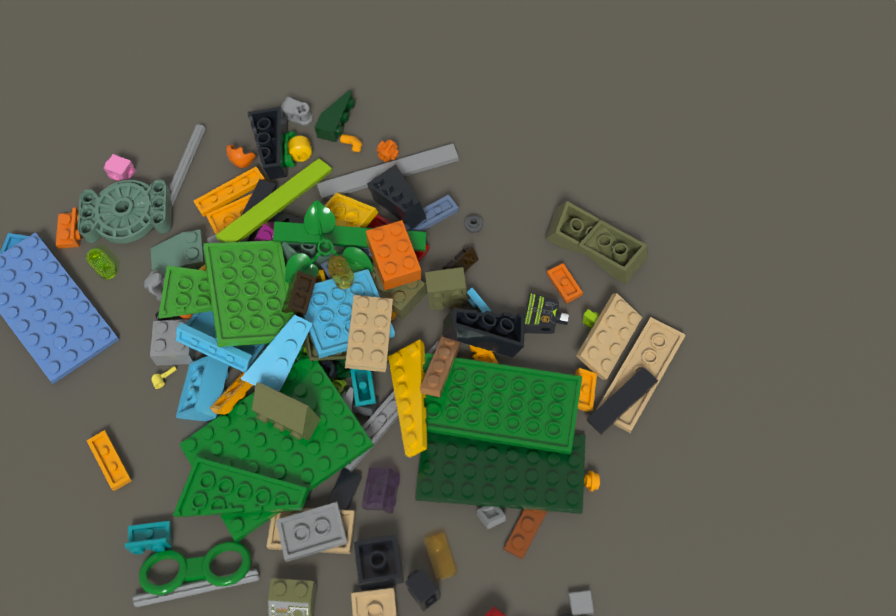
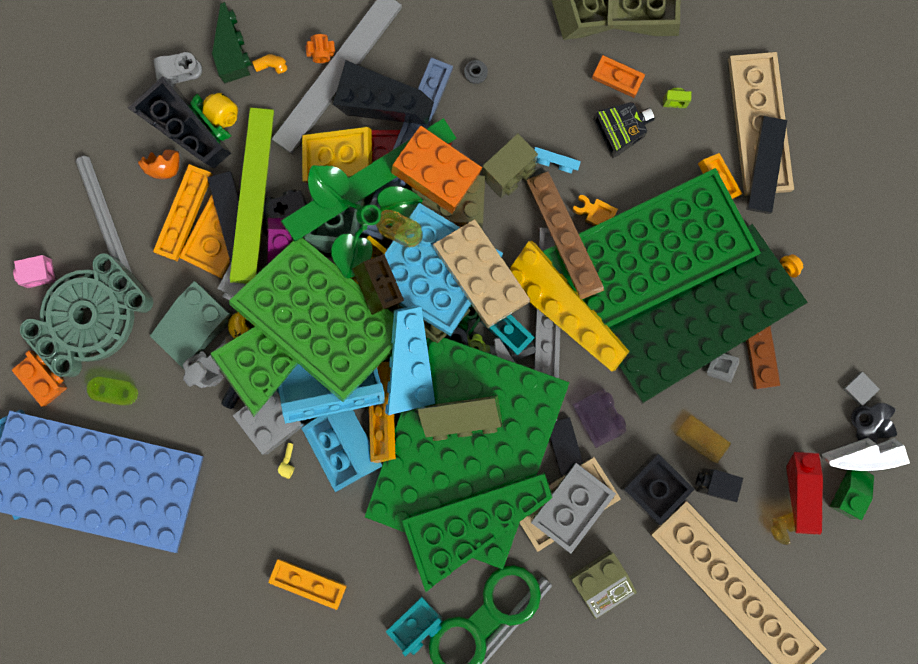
camera: 40 degrees left, 20 degrees up
(464, 259) = (496, 116): dark brown hinge -> none
(486, 330) = (592, 183): black wedge -> none
(609, 336) = (706, 105): tan plate -> none

